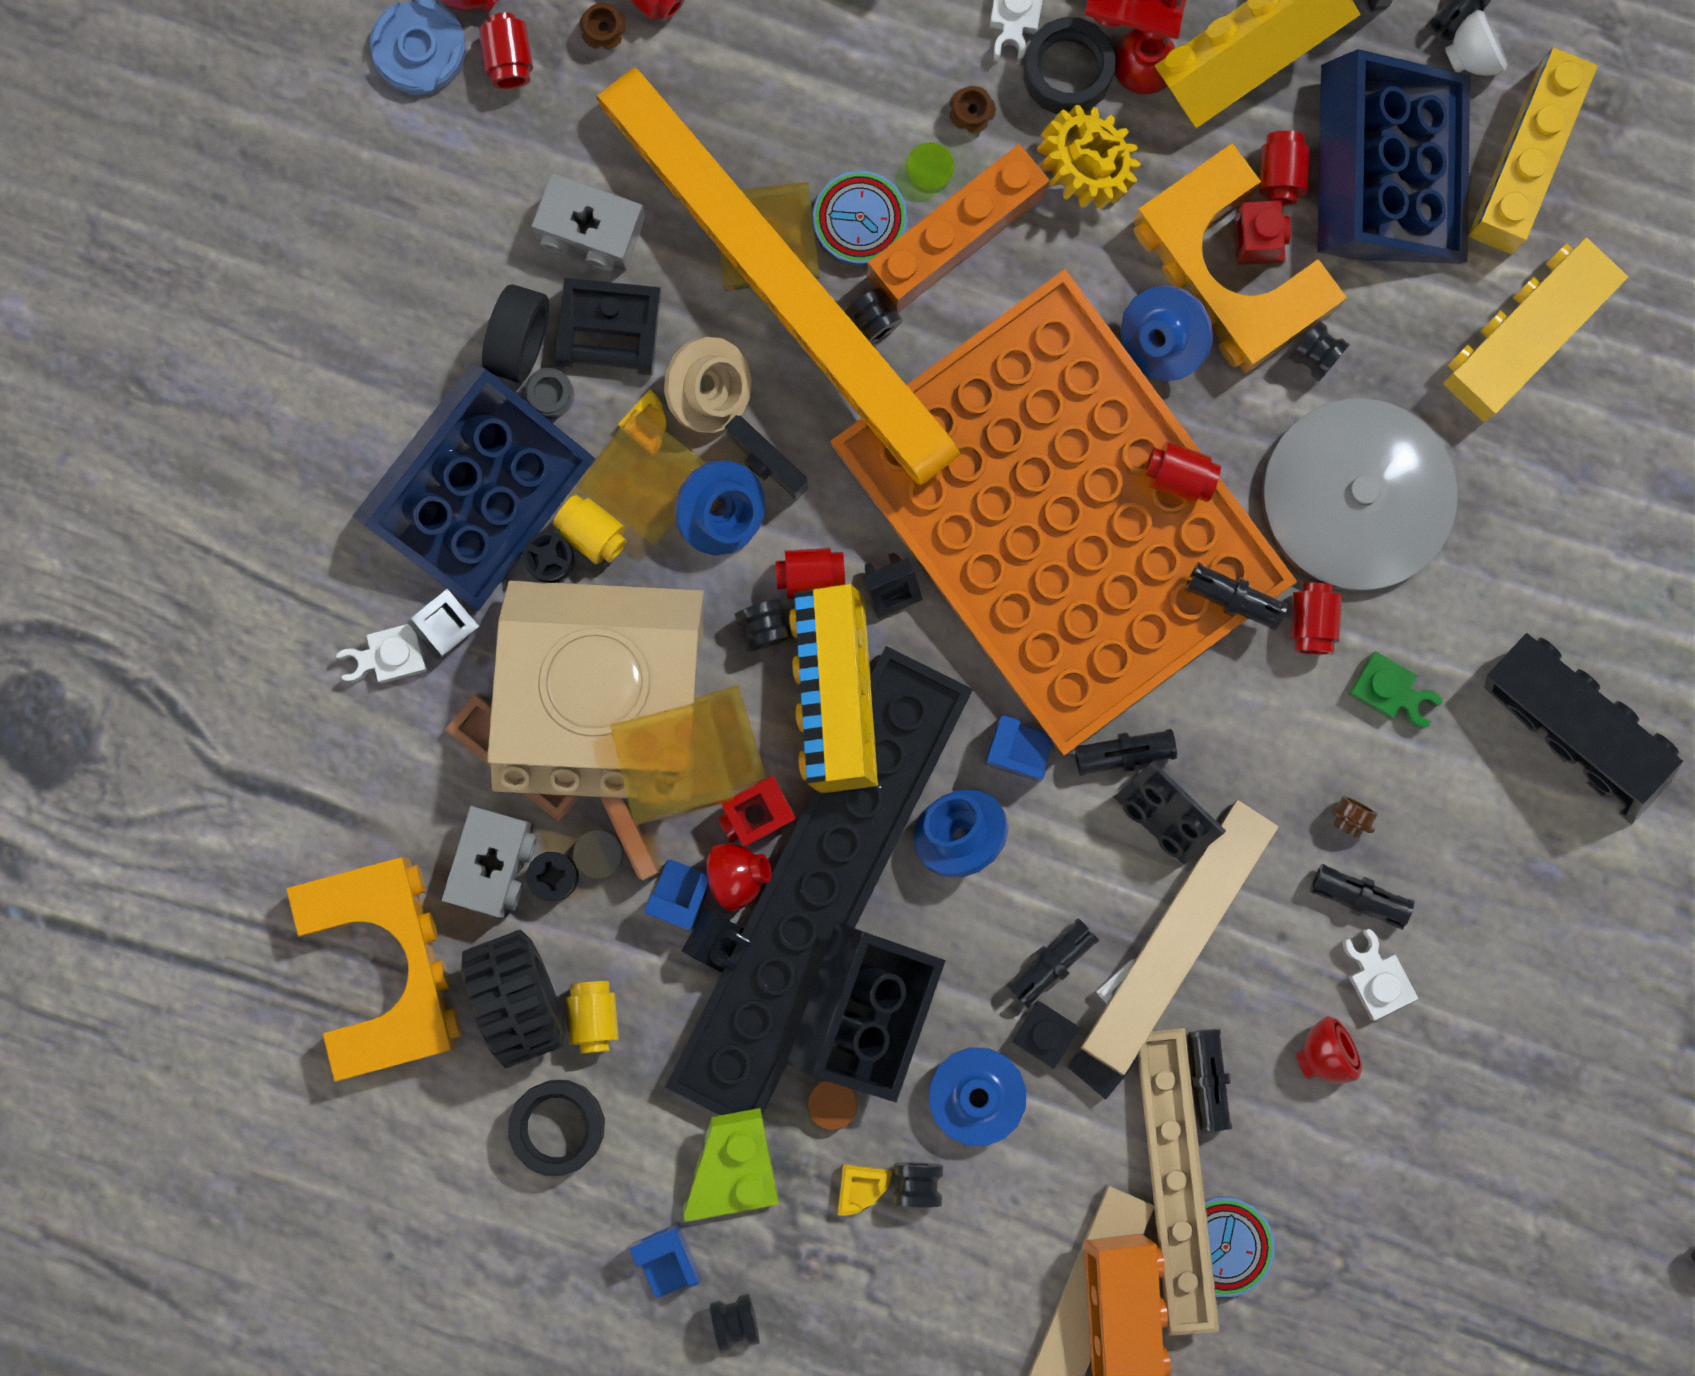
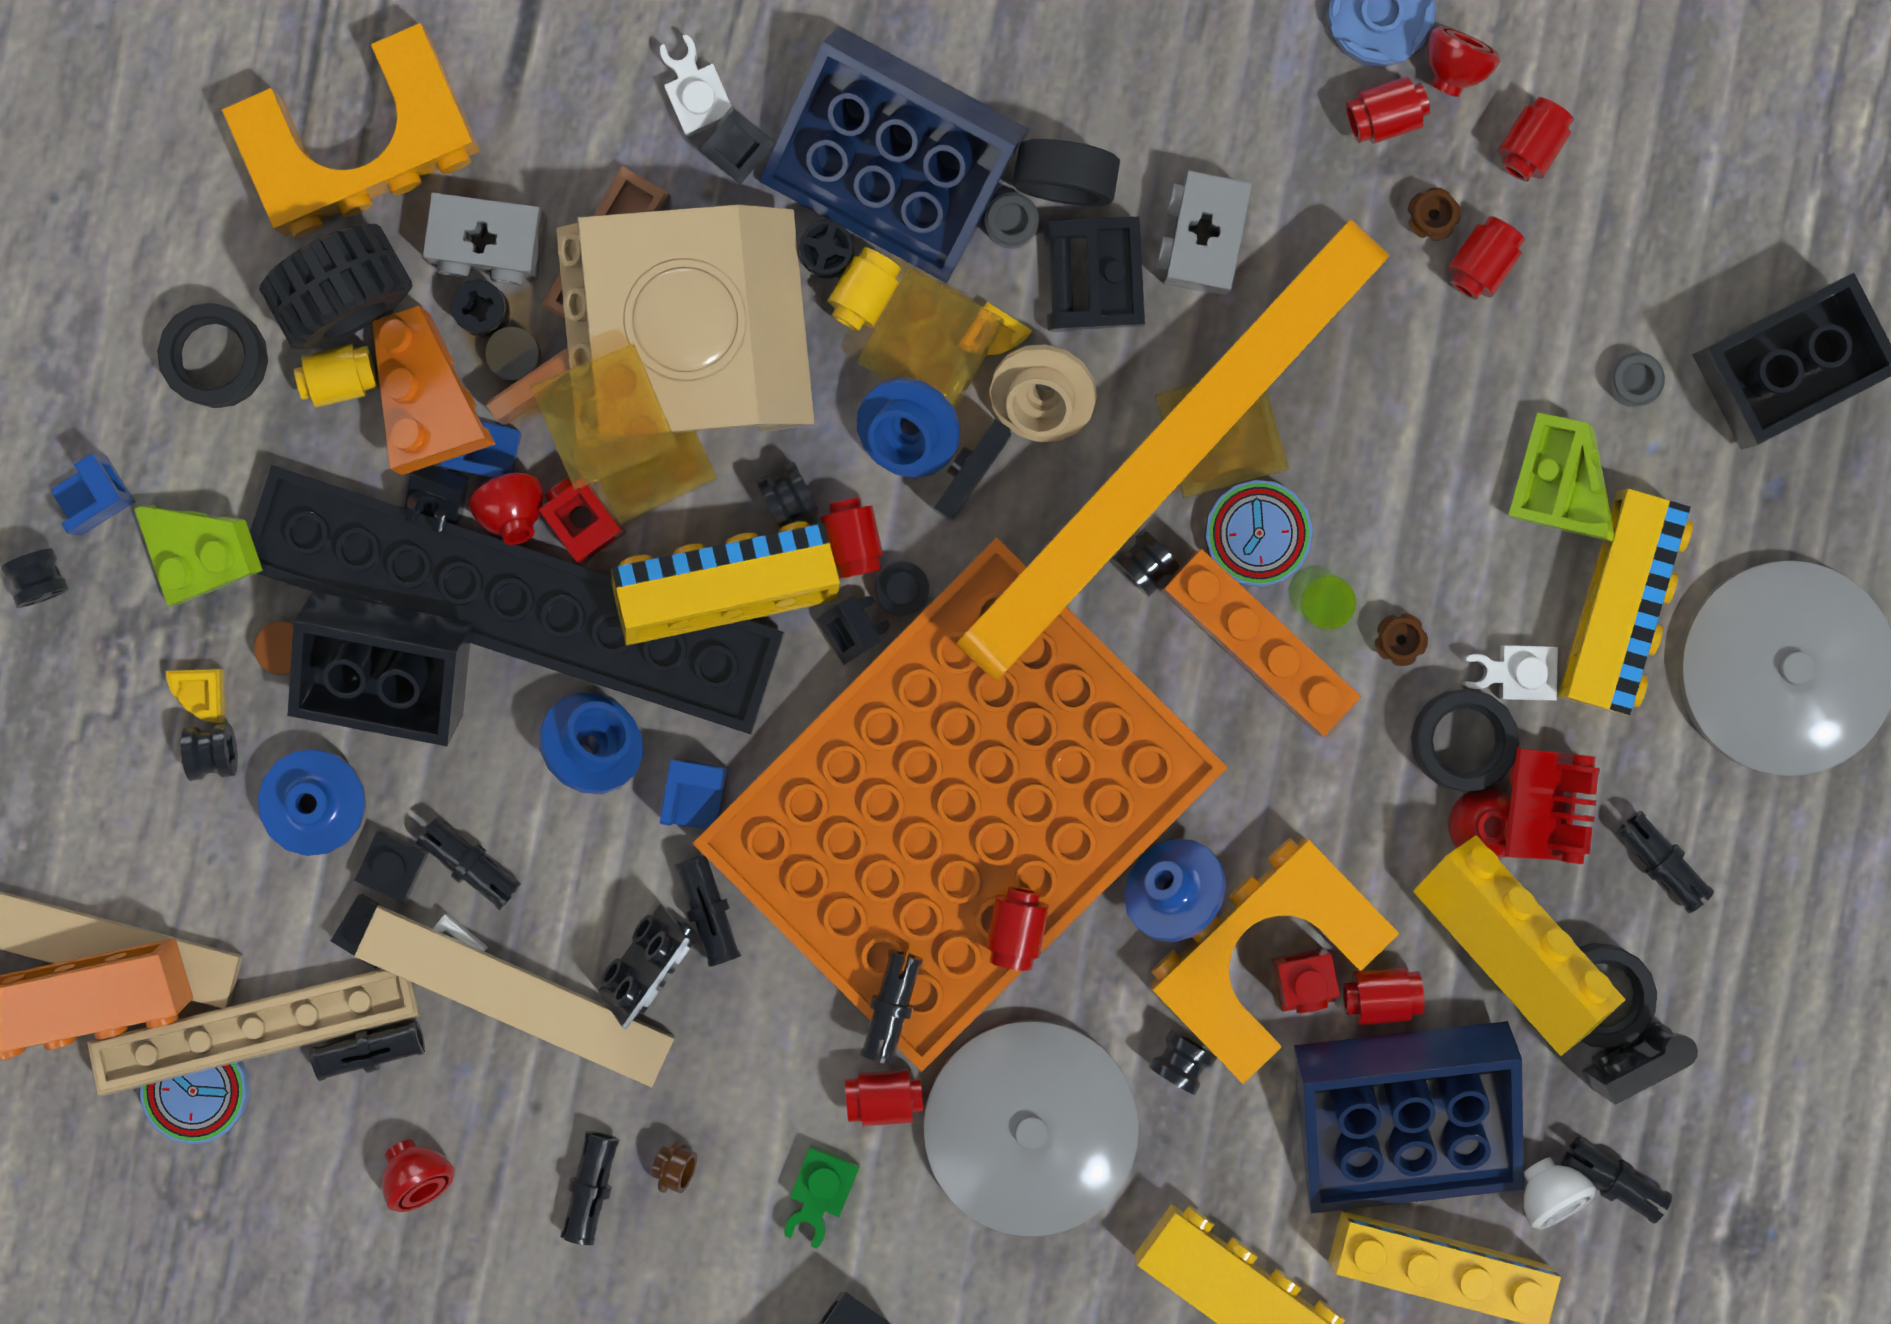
camera: 80 degrees right, 5 degrees up
(624, 937) = (423, 401): none -> orange wing
(862, 536) = (902, 588): none -> black plate
(1088, 157) = (1362, 776): yellow gear -> none
(1380, 981) = (502, 1219): white plate -> none

